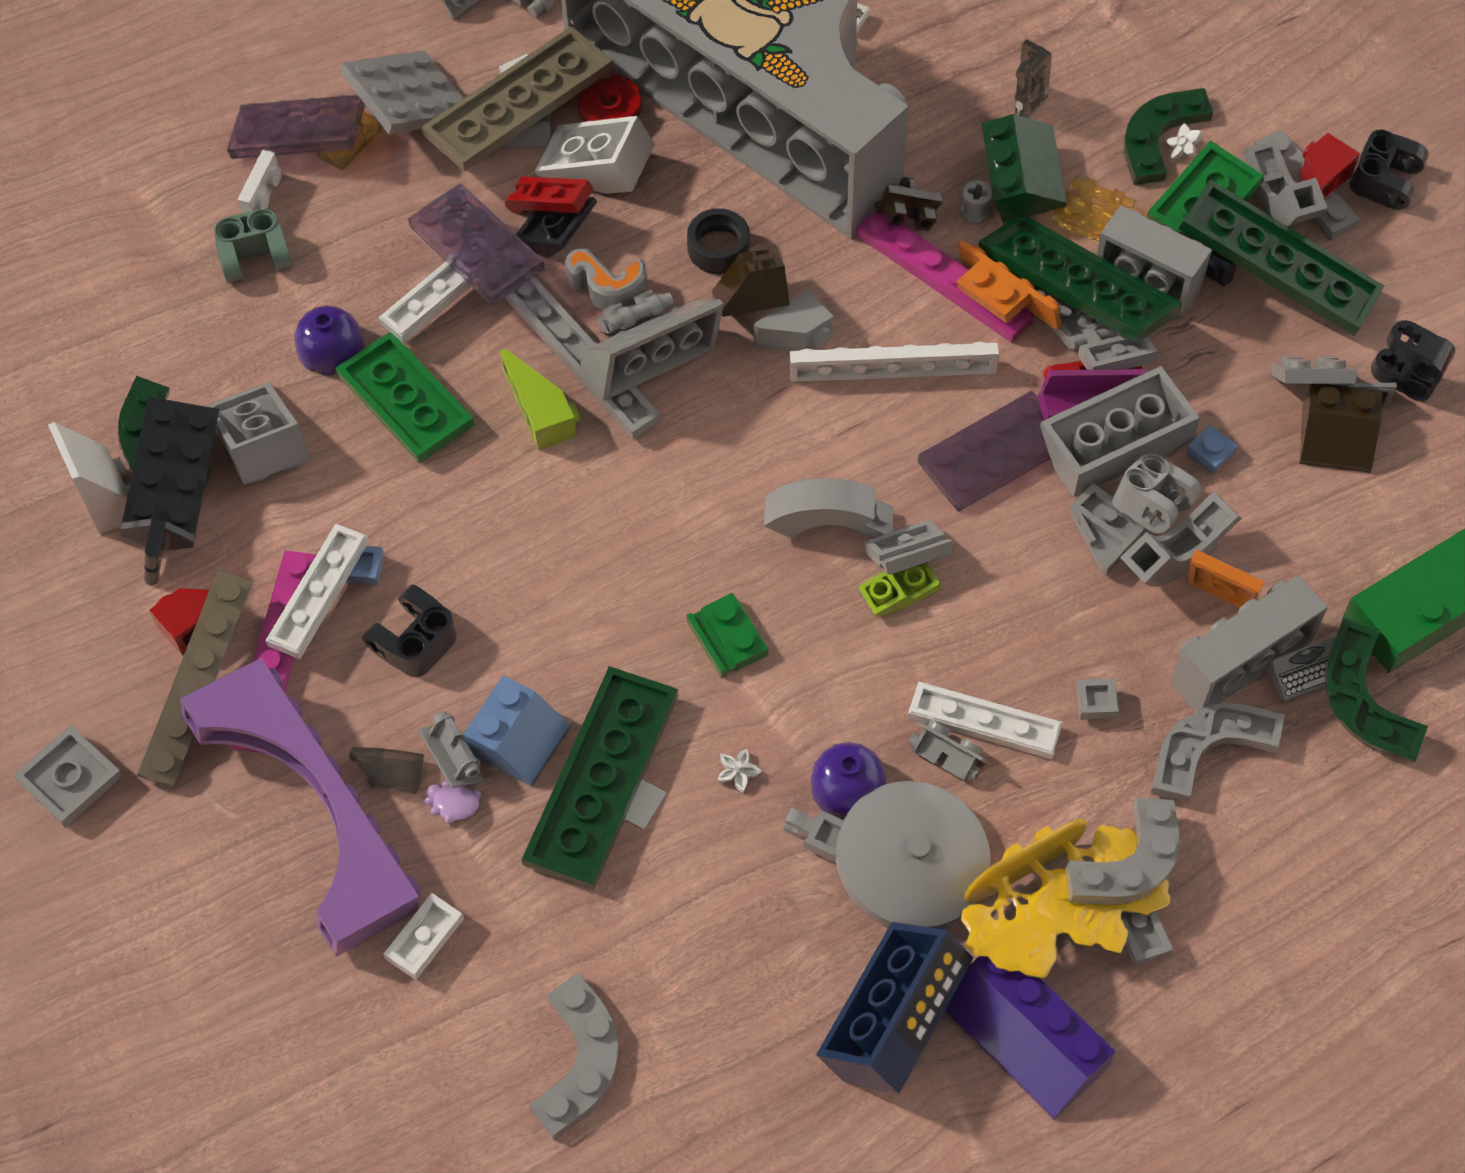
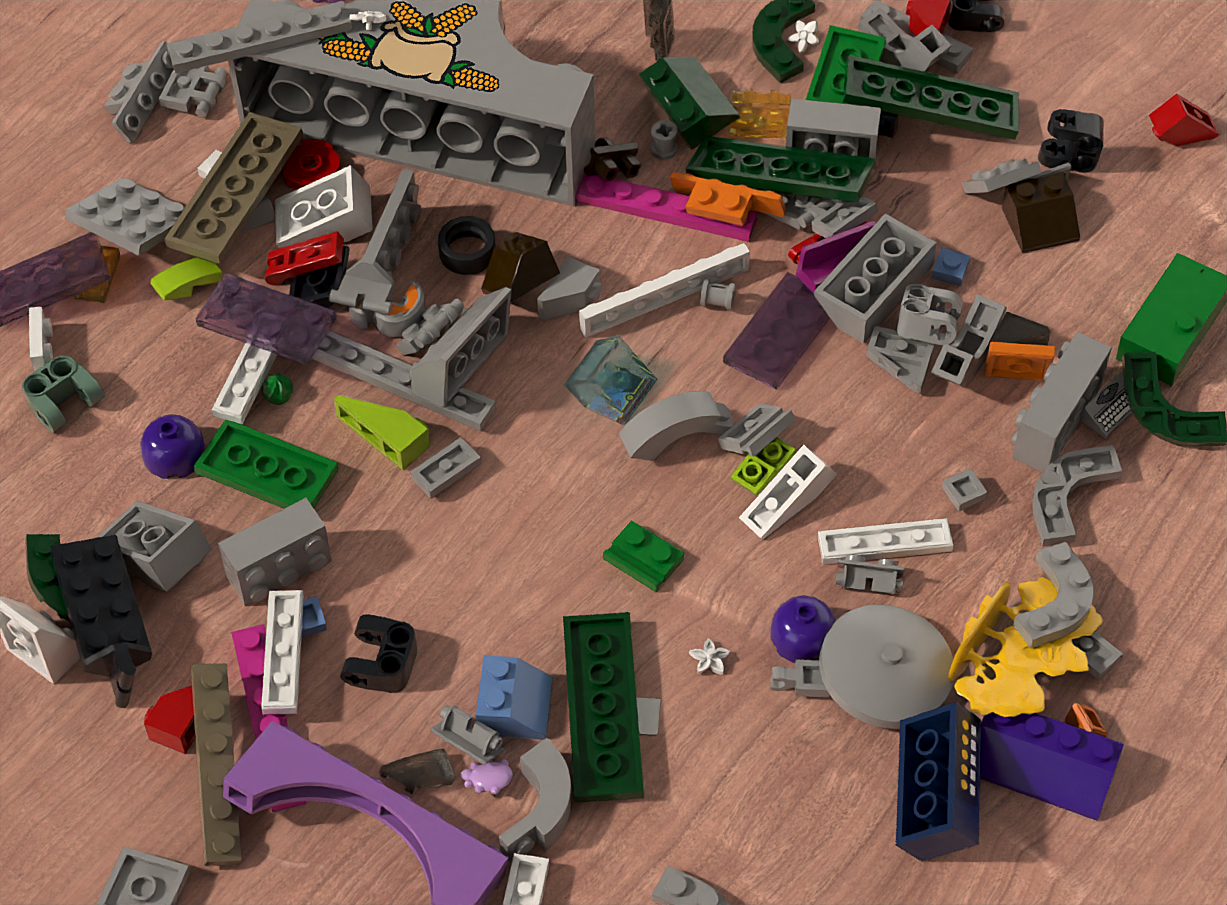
camera: 25 degrees left, 5 degrees down
(361, 486) = (275, 552): none -> light grey brick
(420, 173) = (179, 279): none -> lime slope
(458, 319) = (277, 389): none -> green plate
(496, 860) = (550, 777): none -> light grey arch
(577, 464) = (445, 468): none -> light grey plate
(607, 233) = (371, 276): none -> light grey hinge
(789, 437) = (611, 380): none -> clear light blue slope
(909, 627) = (788, 492): none -> white slope
(946, 387) = (717, 294): none -> light grey bush
(1096, 1007) = (1086, 719): none -> orange slope
(1244, 551) = (1021, 331): none -> clear smoke slope

